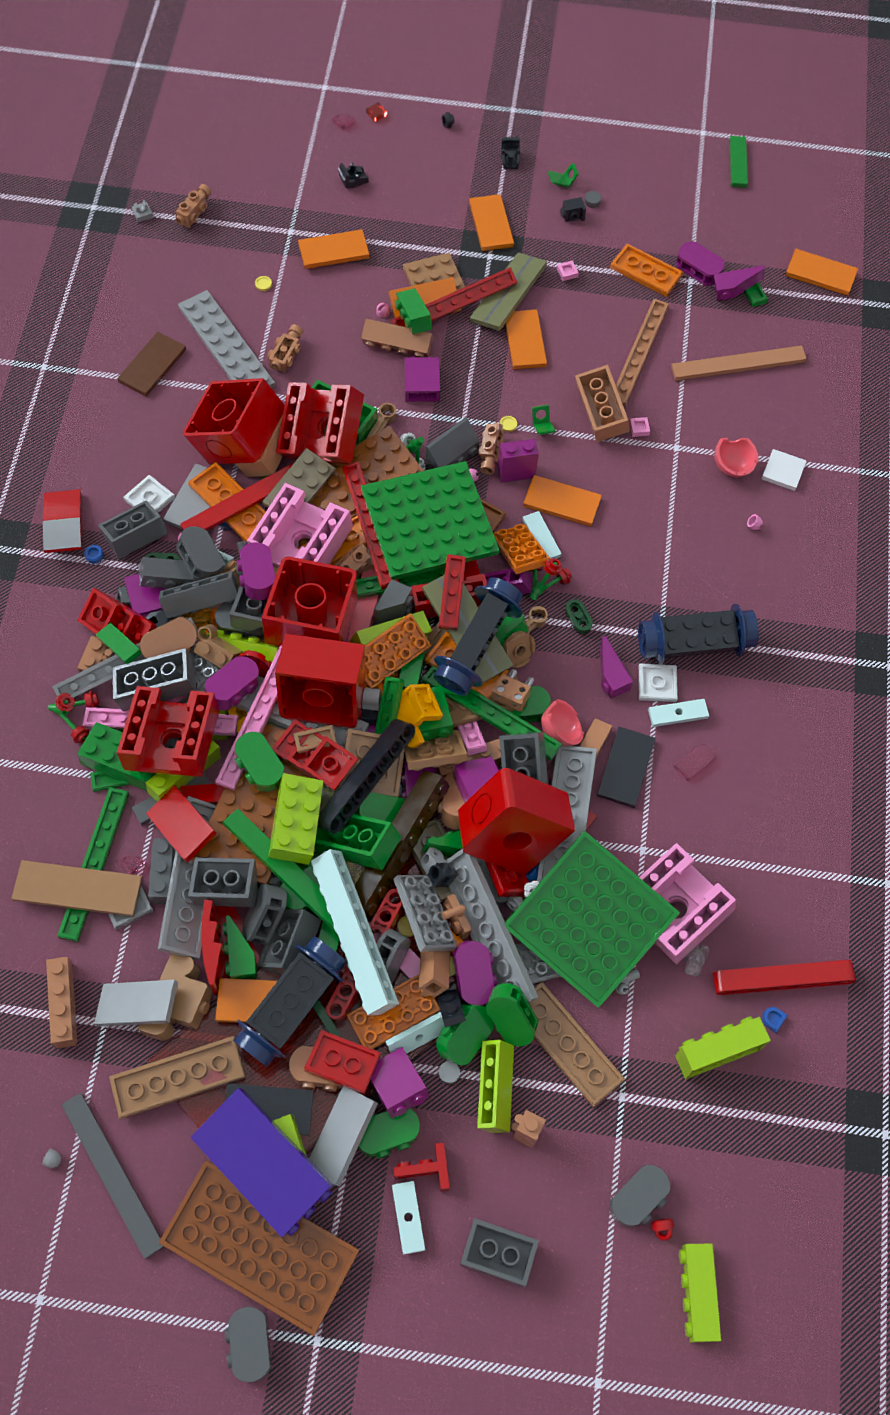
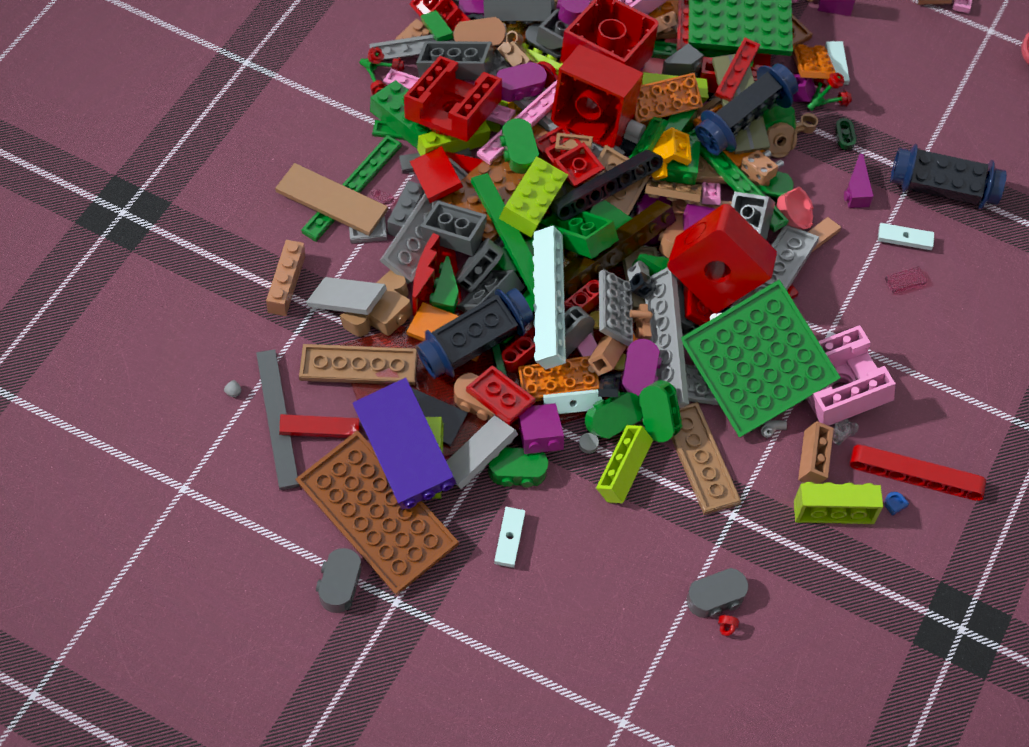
camera: 20 degrees right, 5 degrees down
(160, 1168) = (318, 426): none -> red tile
(426, 1167) = (539, 505): red bracket -> none
(499, 1253) = (576, 588): dark grey brick -> none
(527, 1128) = (640, 502): nougat brick -> none
(562, 500) = (867, 40): orange tile -> none
(626, 767) = (840, 264): black tile -> none
(657, 682) = (896, 208): white tile -> none
(680, 998) = (816, 453): none -> nougat brick
(701, 1293) = (741, 686): lime brick -> none

